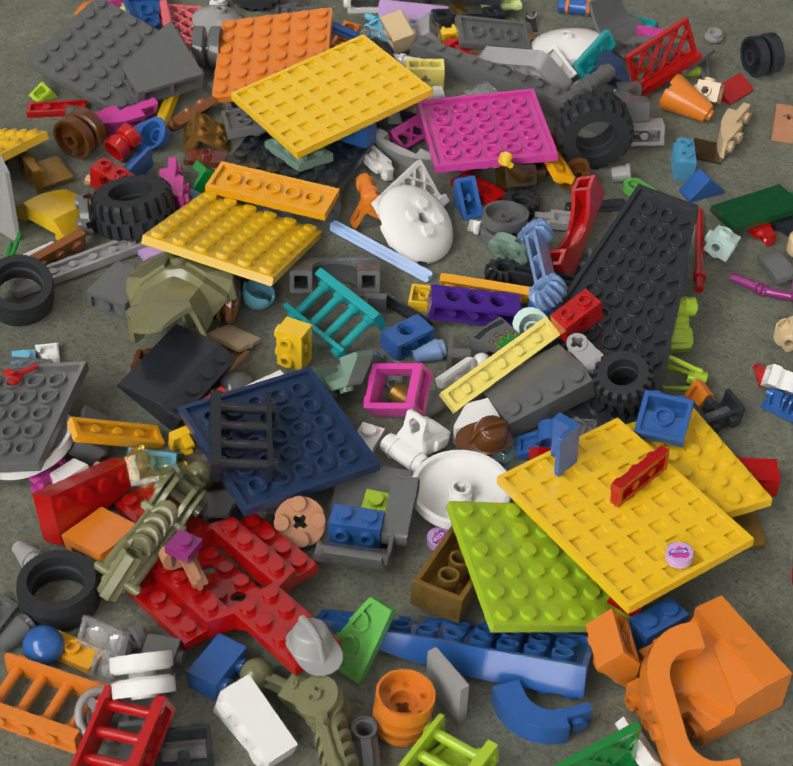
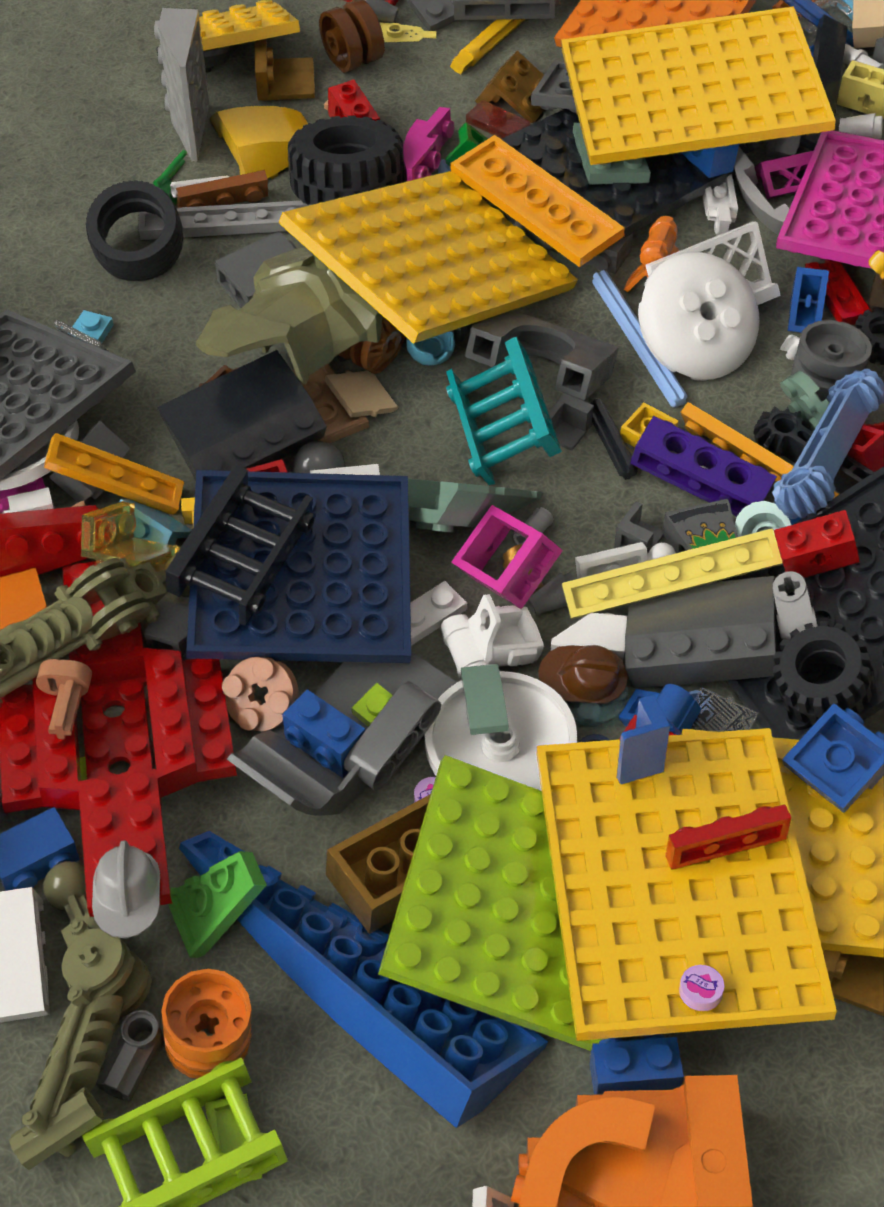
camera: 30 degrees right, 10 degrees up
(15, 376) = (47, 347): red hand -> none
(48, 351) = (128, 327): white tile -> none
(86, 220) = (275, 160): dark grey plate -> none
(125, 140) = (400, 65): red wheel -> none
(133, 115) = (411, 33): dark pink slope -> none
(140, 164) = (402, 105): blue panel -> none
(153, 134) = (442, 67): blue piece -> none
(183, 117) = (538, 45): dark orange hinge -> none
(183, 546) = (64, 671): magenta plate -> none
(293, 343) = (420, 433): yellow brick -> none
(406, 336) = (584, 480): blue brick -> none
(431, 351) = (602, 513): medium blue cone -> none
(443, 470) = (484, 699): none -> sand green slope
(448, 683) = (284, 1019): light grey tile -> none
(535, 722) = (370, 1130): blue arch -> none
(613, 647) = (538, 1074): orange slope -> none

